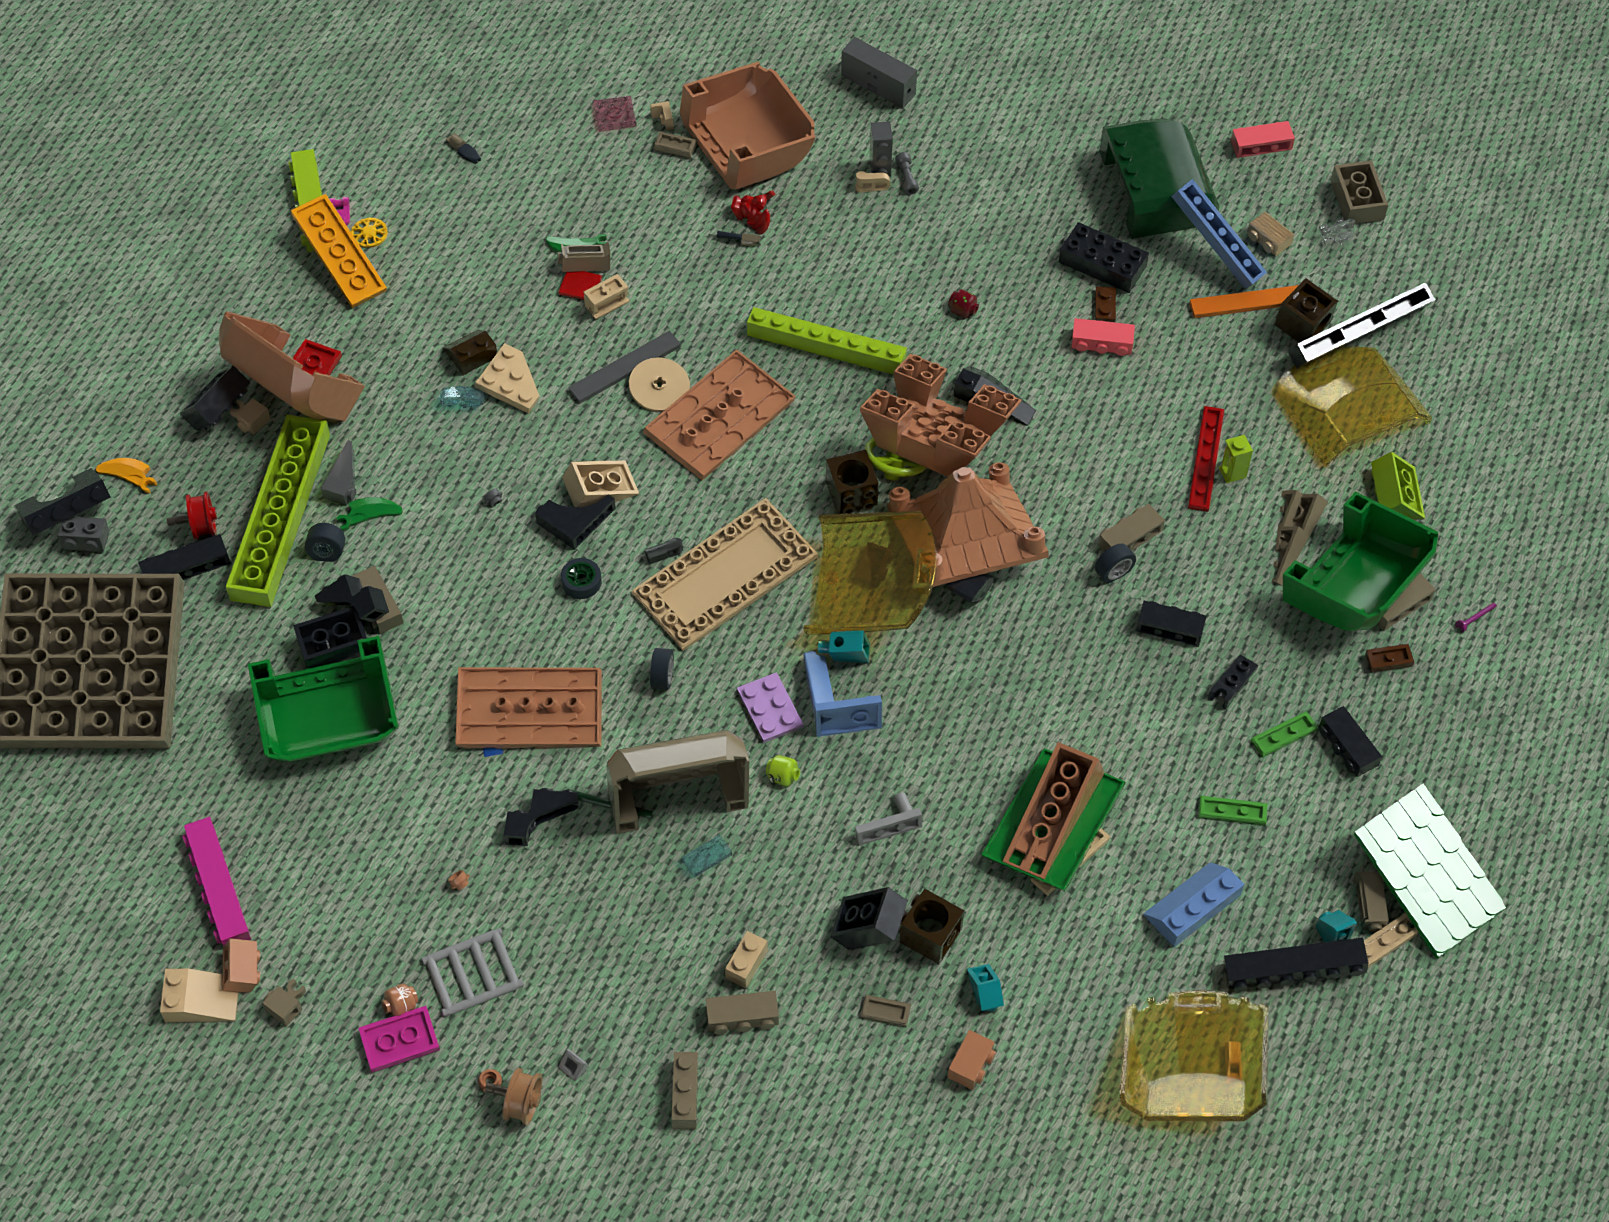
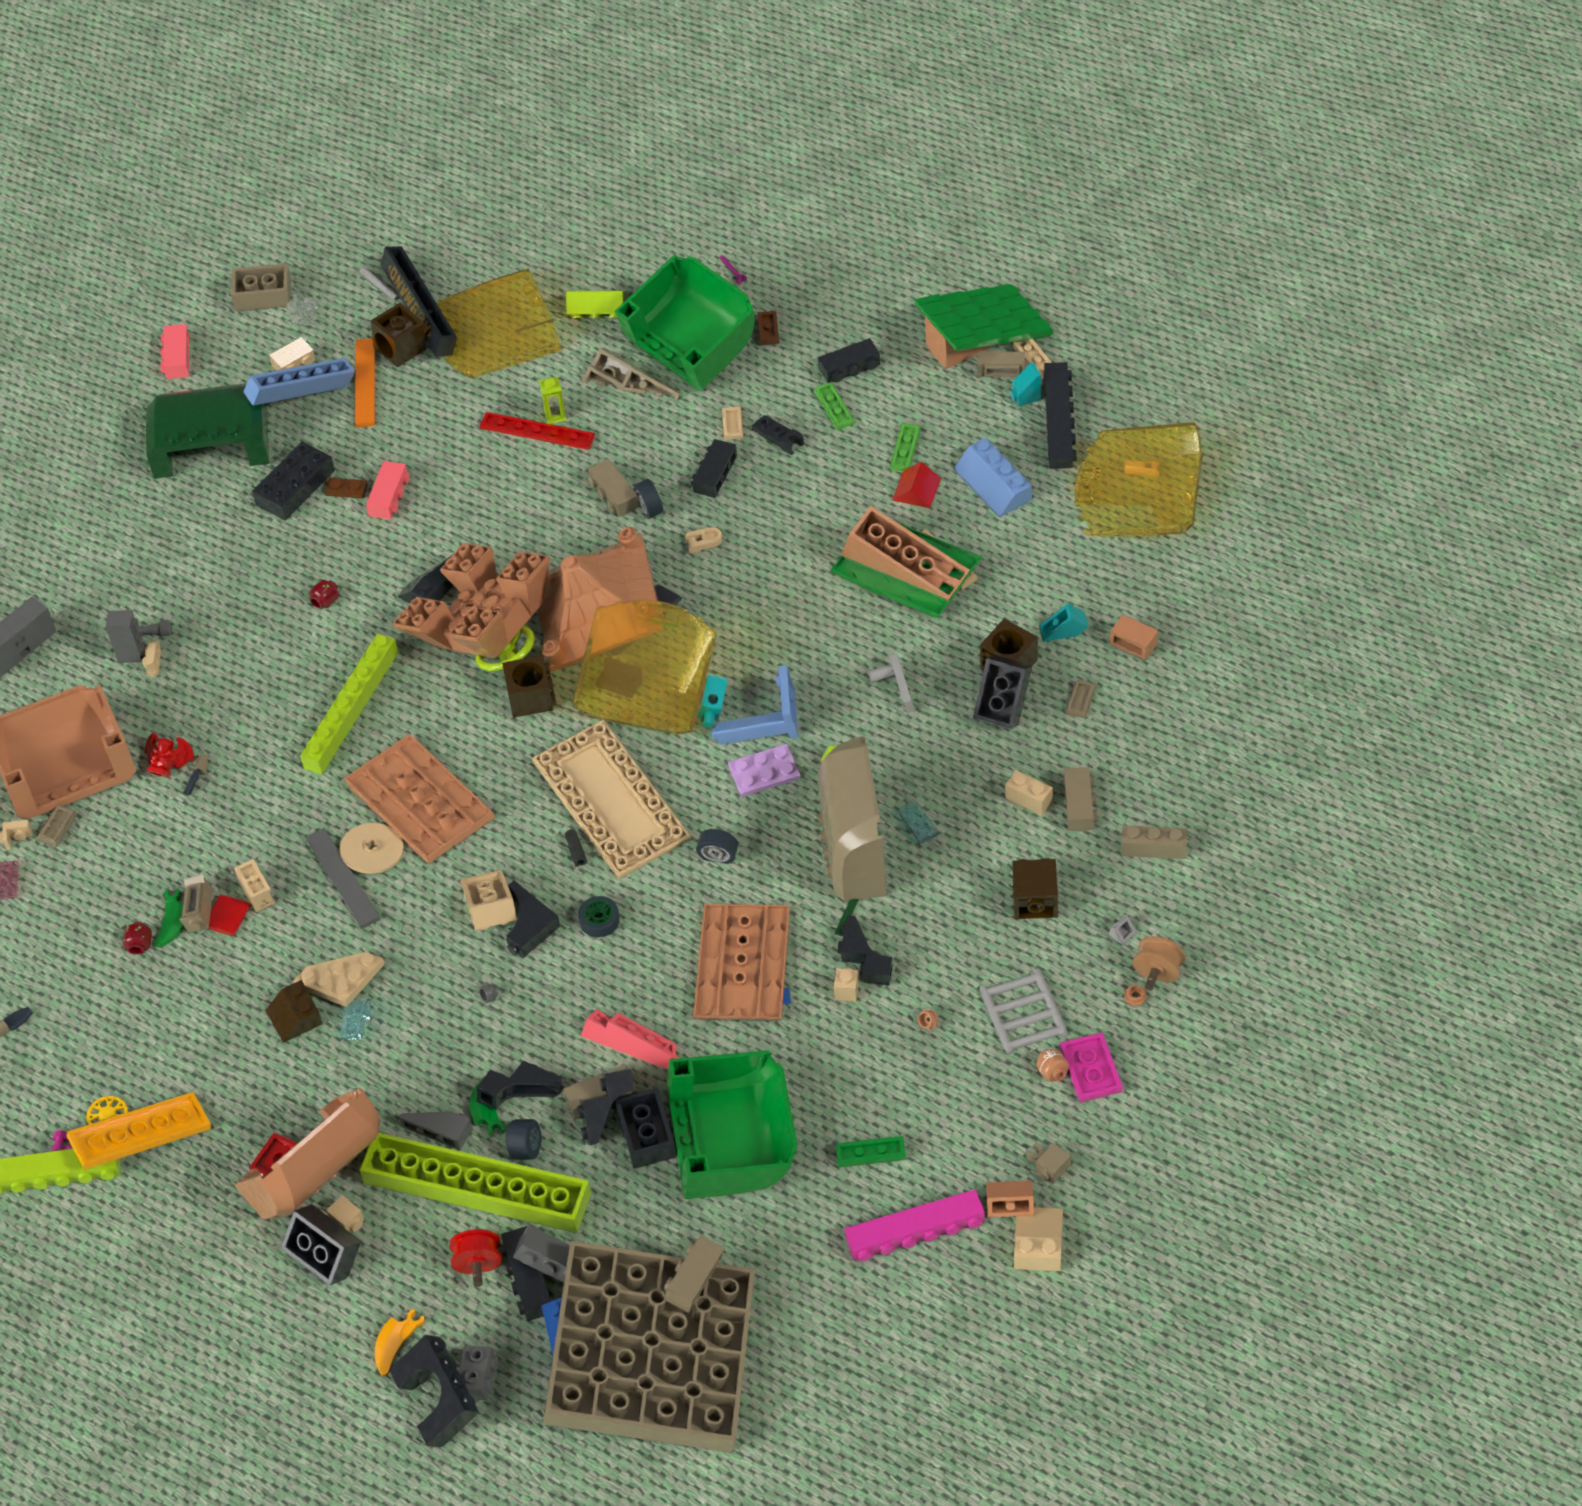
camera: 80 degrees left, 5 degrees down
(146, 681) = (693, 1273): none -> dark tan brick
(192, 570) = (543, 1252): none -> dark grey brick
(305, 838) = (870, 1151): none -> green plate
(390, 536) = (525, 1082): none -> black arch
(439, 622) = (629, 1037): none -> coral wedge
(498, 800) = (846, 984): none -> tan brick
(551, 221) = (137, 938): none -> dark red head
(614, 968) = (1035, 888): none -> dark brown brick
(1075, 629) = (710, 537): none -> tan plate
(1173, 826) = (917, 486): none -> red slope
(1244, 636) = (732, 423): none -> tan tile
(1396, 289) = (377, 282): none -> light grey bar

